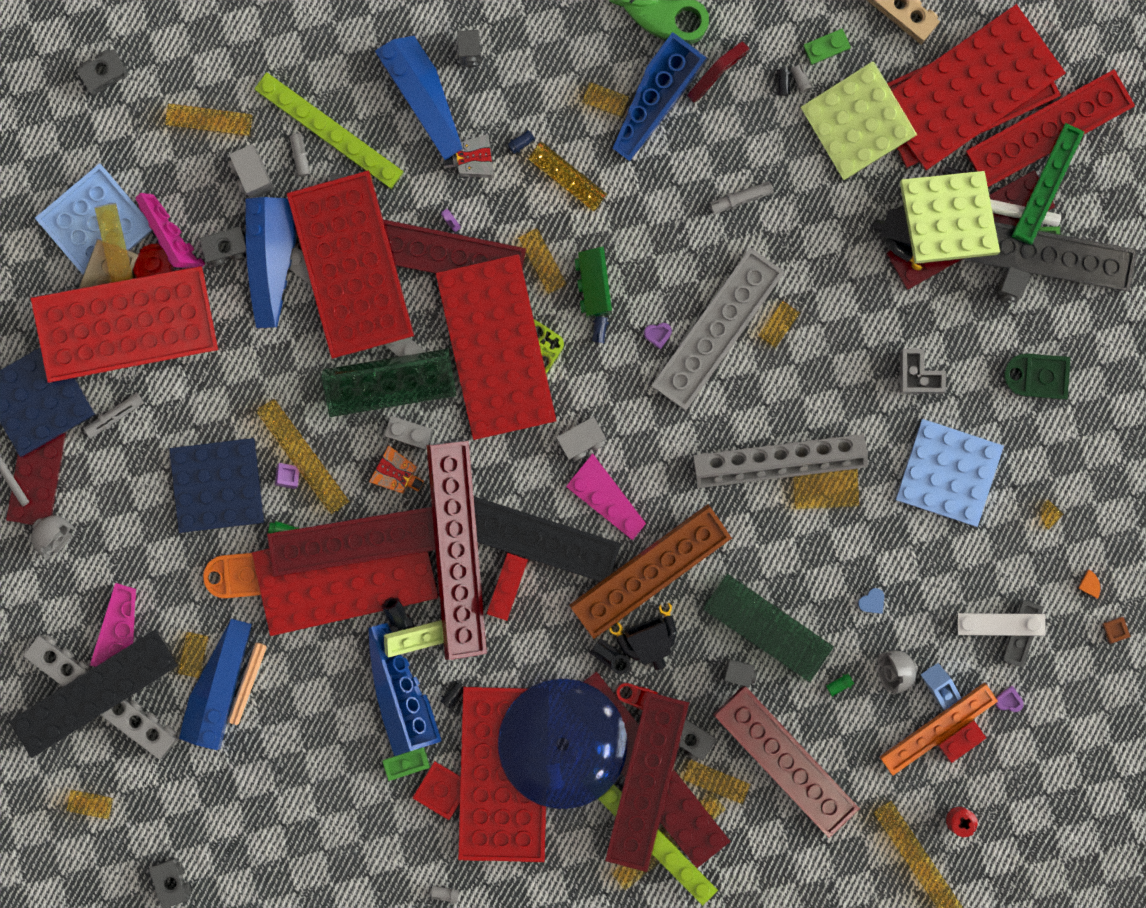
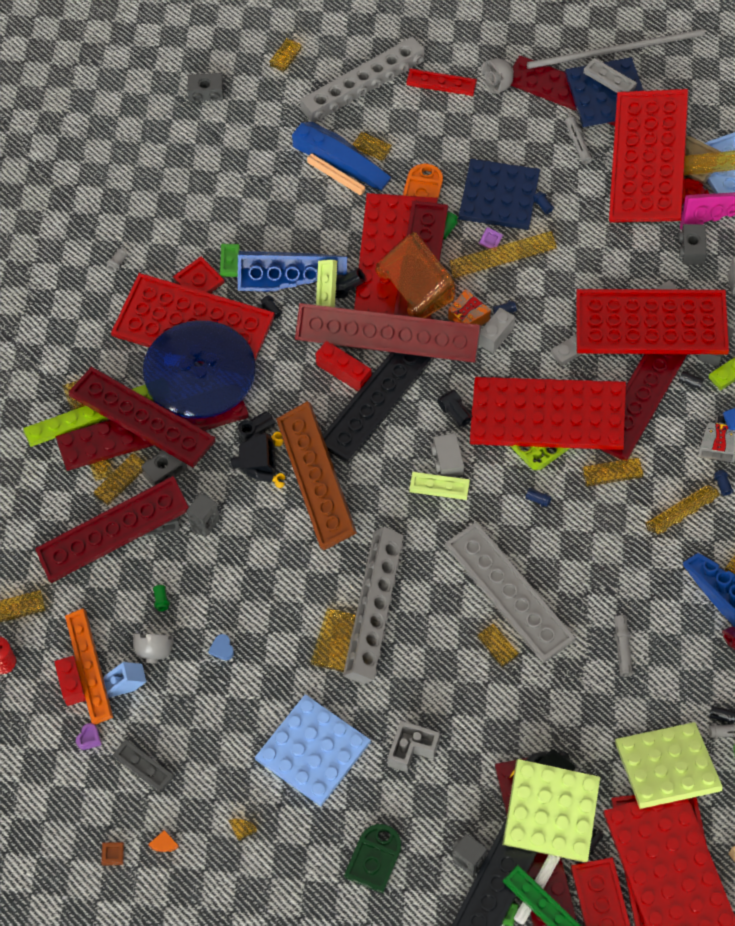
camera: 105 degrees right, 25 degrees down
(25, 398) = (609, 76): none -> light grey plate
(72, 602) = (441, 82): none -> red tile
(94, 693) = (367, 71): black plate -> none
(118, 624) = (404, 100): dark pink wing -> none
(216, 430) = (542, 201): none -> dark blue pin
(268, 251) = (676, 268): blue wedge -> none
(374, 433) = (509, 307): none -> dark blue pin
(384, 538) = (417, 276): none -> clear orange windscreen
(389, 382) = (543, 324): clear green brick -> none
(404, 204) = (691, 380): none -> black pin
(450, 220) = (670, 411): medium lavender tile -> none
(516, 453) = (452, 404): none -> black piece
(593, 282) = (580, 503): green slope -> none
(604, 496) = (397, 459): dark pink wing -> none
(619, 437) = (439, 485): none -> yellowish green plate
(637, 696) = (221, 436): red piece -> none
(658, 334) = (519, 543): medium lavender tile -> none
(768, 627) = (232, 552): clear green brick -> none
(1001, 624) = (158, 748): white plate -> none

